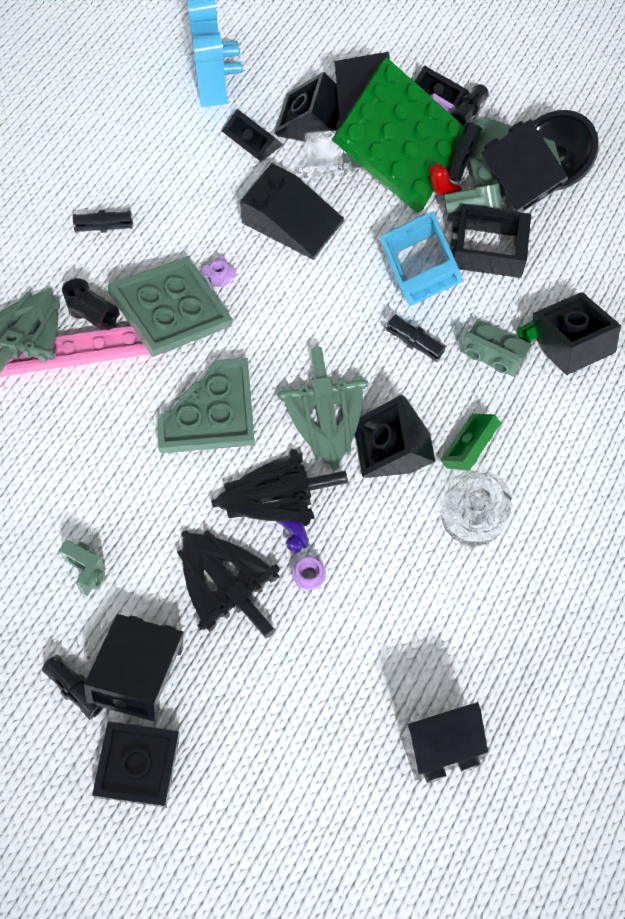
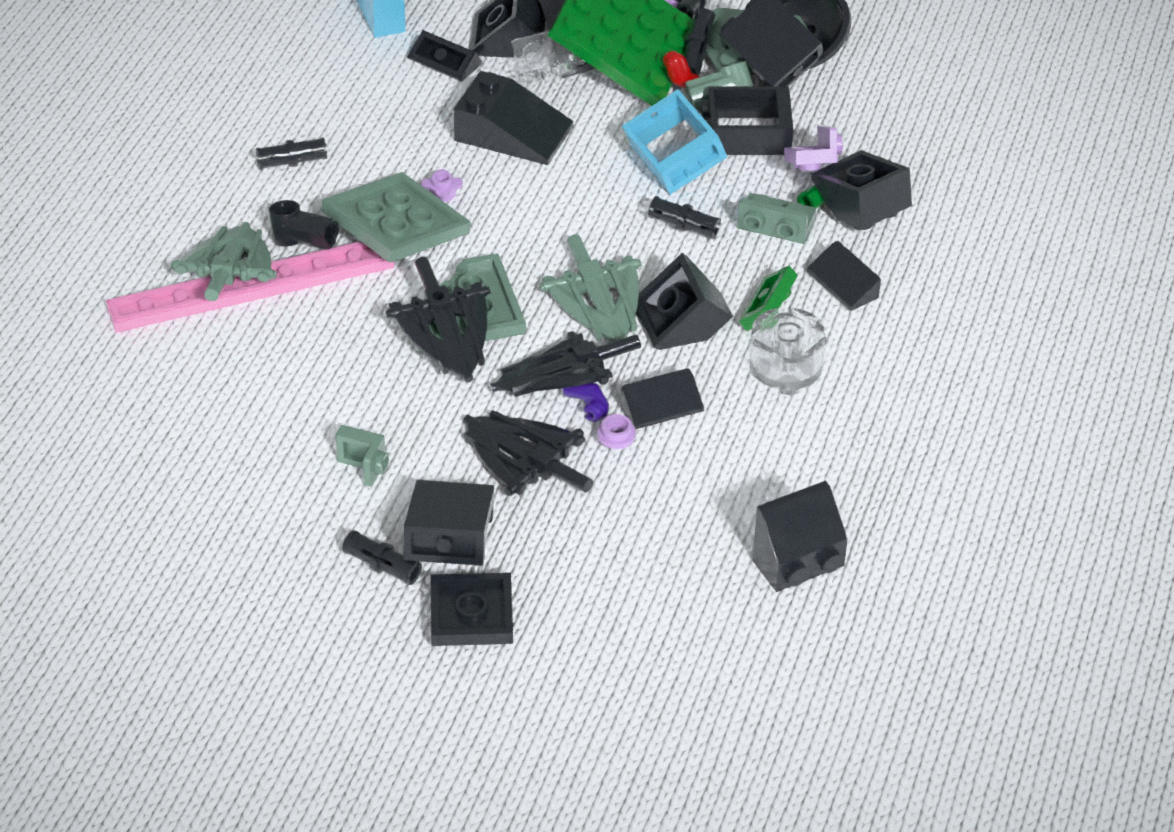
camera: 10 degrees left, 20 degrees down
(189, 464) = (454, 351): none -> black bar
(355, 541) = (661, 398): none -> black slope
(539, 289) = (810, 157): none -> lavender bracket
(543, 424) = (845, 276): none -> black slope

